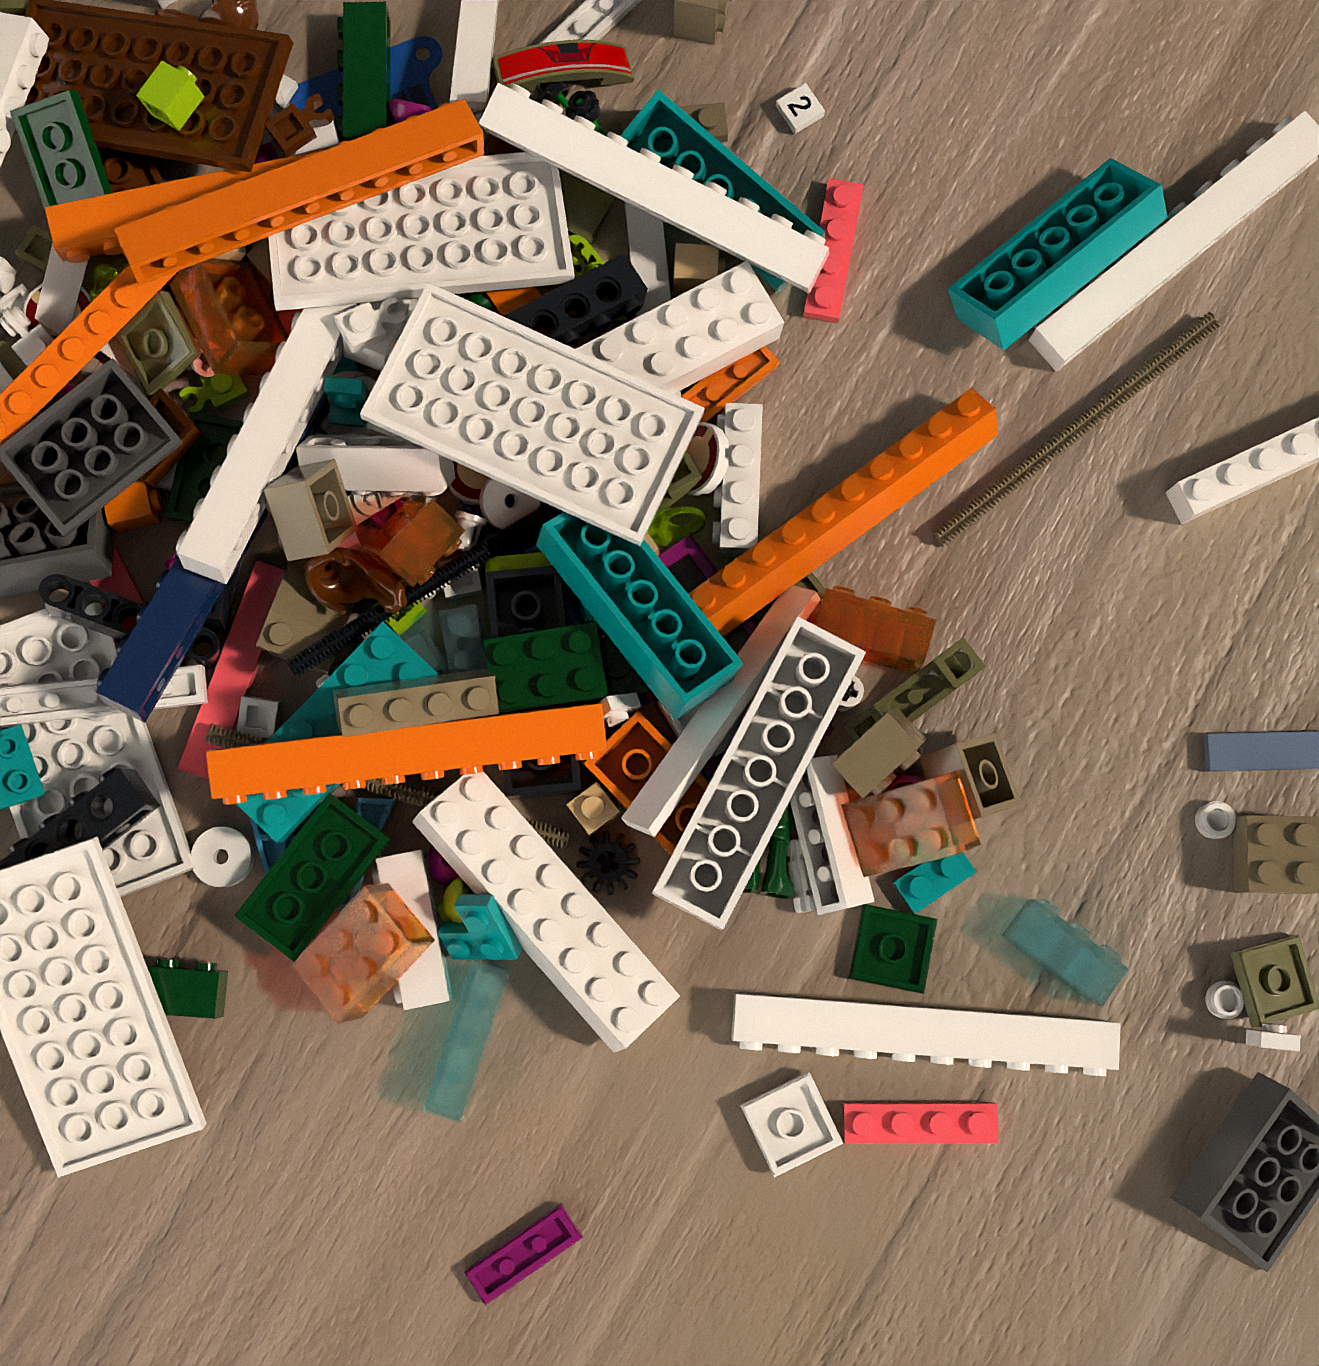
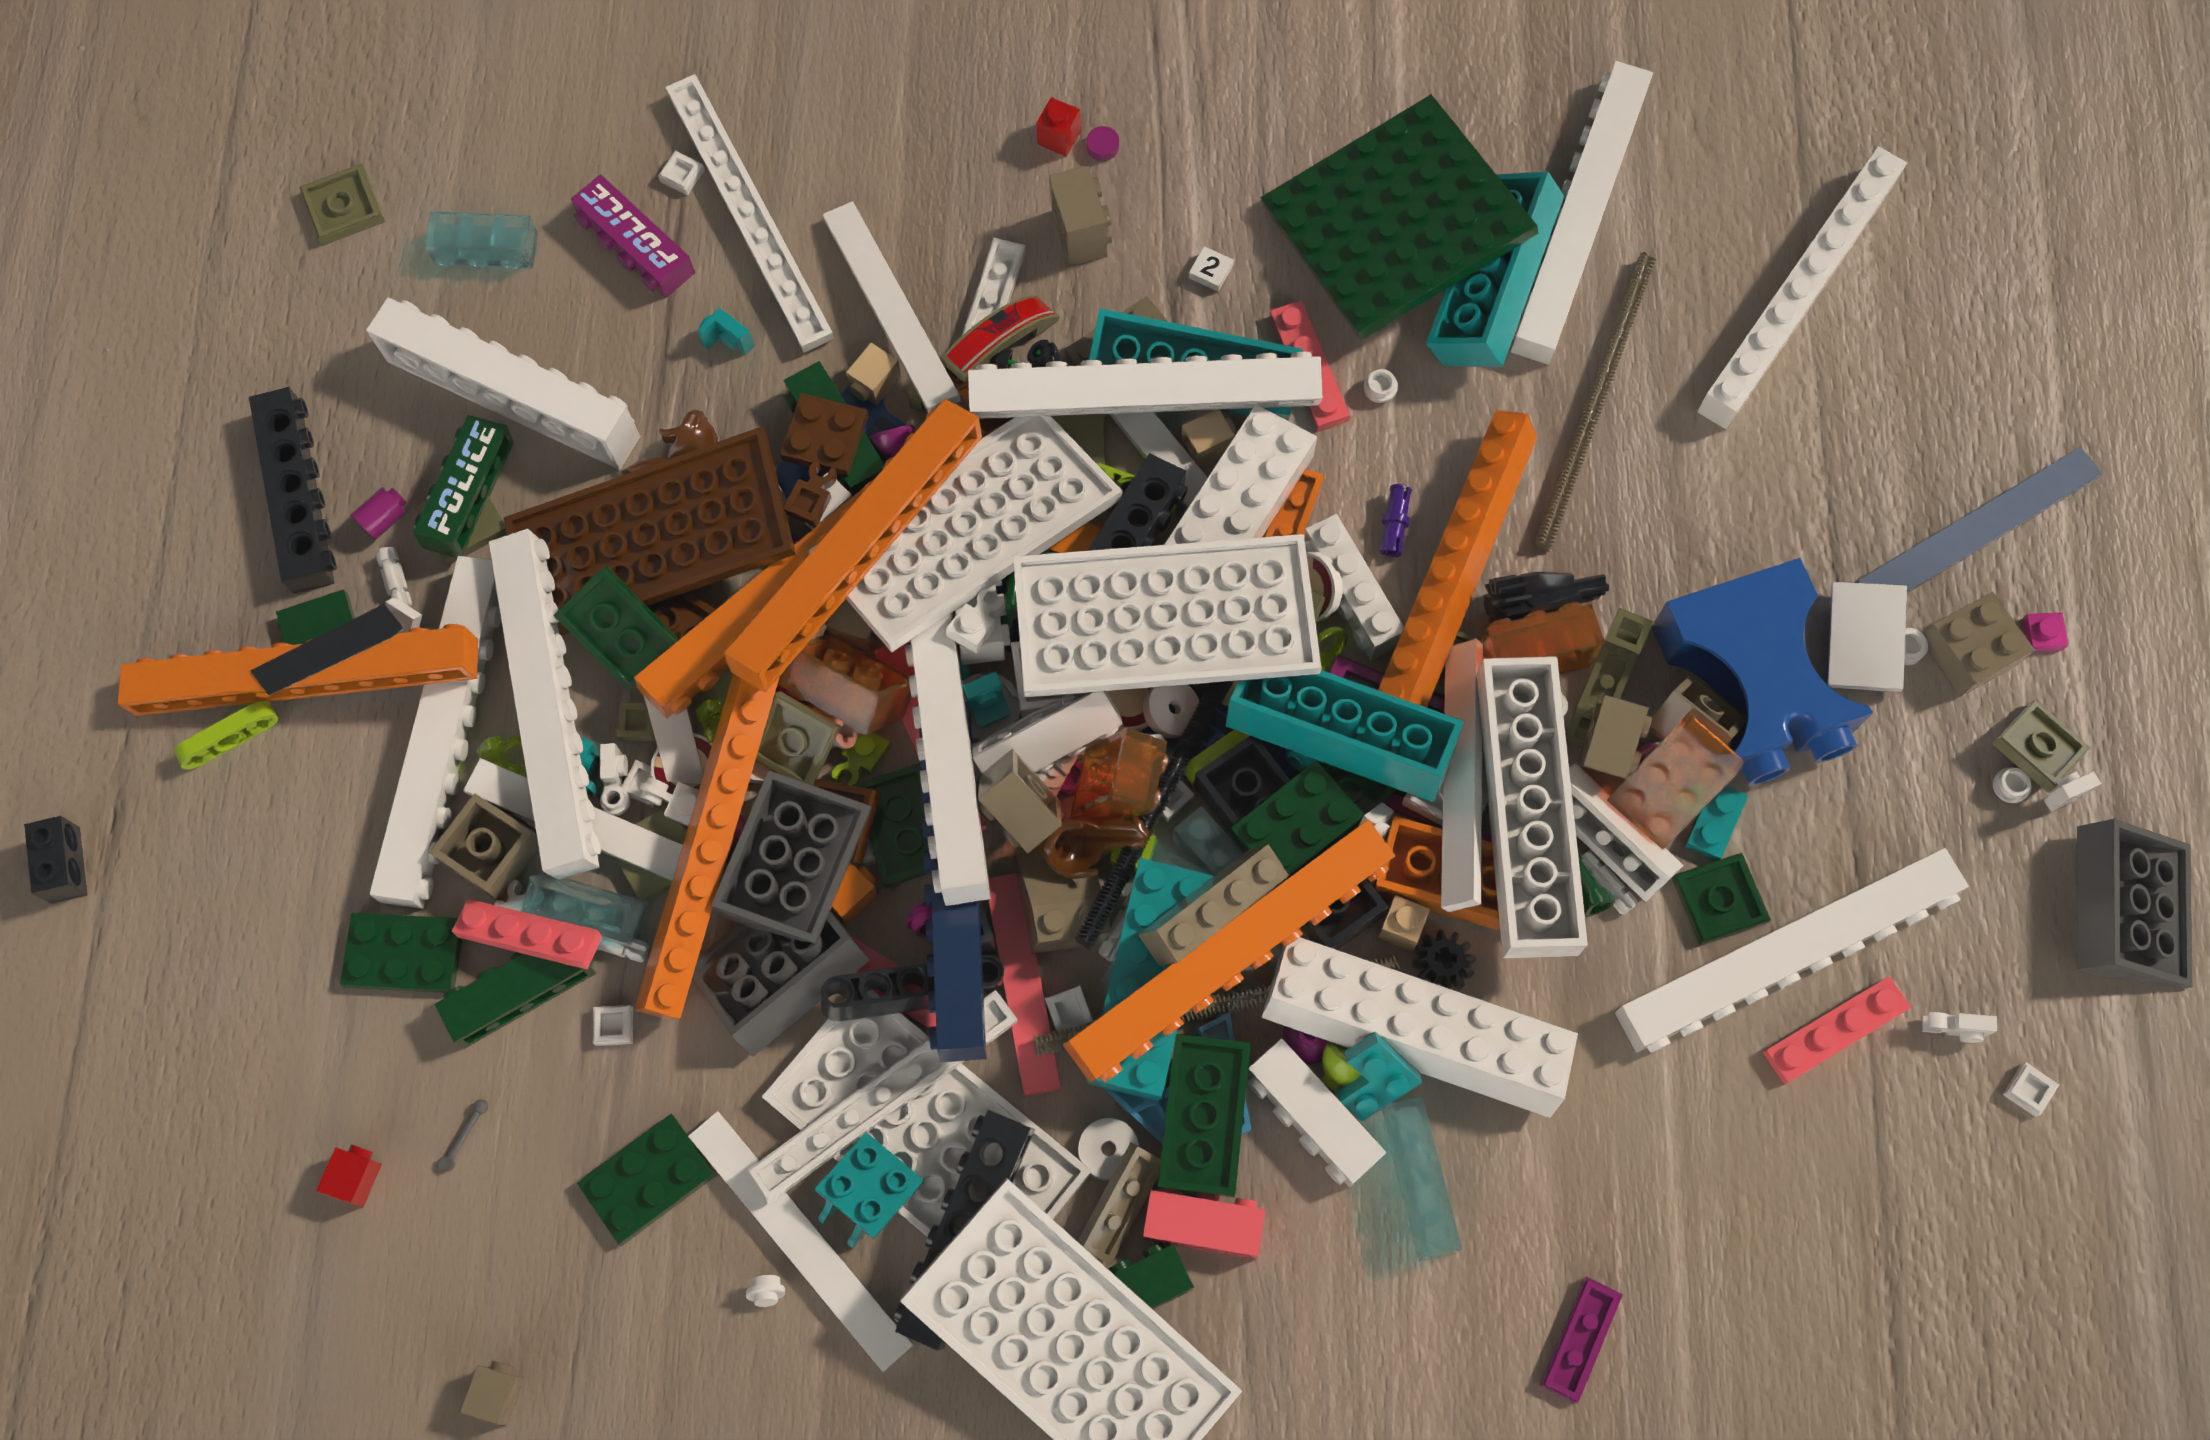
camera: 25 degrees left, 10 degrees down
(171, 94) = (692, 526): lime brick -> none
(198, 910) = (1120, 1203): none -> dark tan plate
(258, 969) = (1204, 1223): none -> coral brick
(347, 73) = (824, 433): none -> reddish brown plate
(363, 952) = (1290, 1151): clear orange brick -> none
(429, 41) = (873, 374): none -> tan brick
(791, 1124) = (1734, 1092): white plate -> none
(819, 440) = (1395, 520): none -> dark purple pin
(885, 306) = (1380, 386): none -> white plate
(902, 582) = (1535, 591): none -> black piece
(998, 151) = (1398, 216): none -> dark green plate
(1036, 1190) = (1969, 1027): none -> white plate
(1059, 1275) = (2030, 1089): none -> white tile
(1060, 741) = (1753, 653): none -> blue brick
(1066, 950) = (1861, 818): clear light blue brick -> none
(1181, 790) = (1867, 636): none -> white tile

